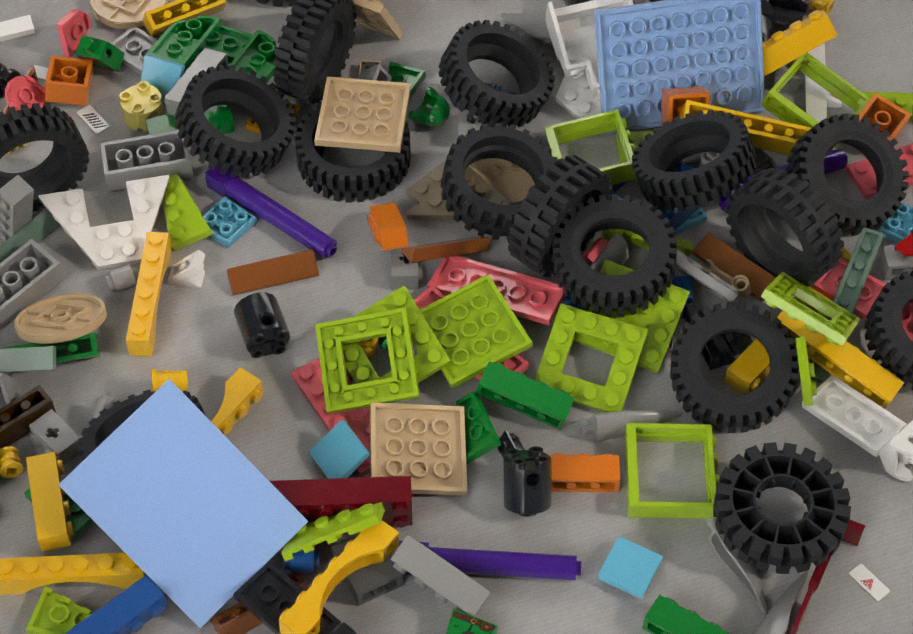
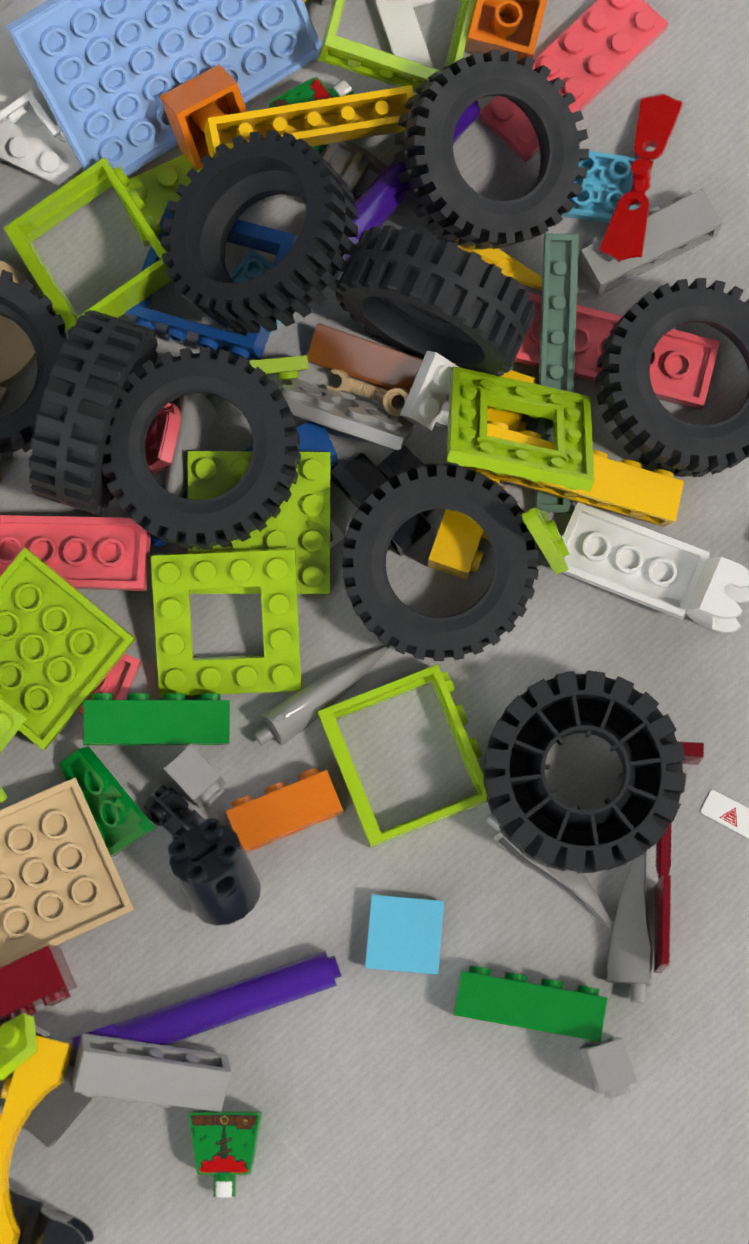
camera: 20 degrees left, 25 degrees up
(537, 428) = (196, 777): none -> light grey brick
(758, 283) = (429, 393): none -> white plate

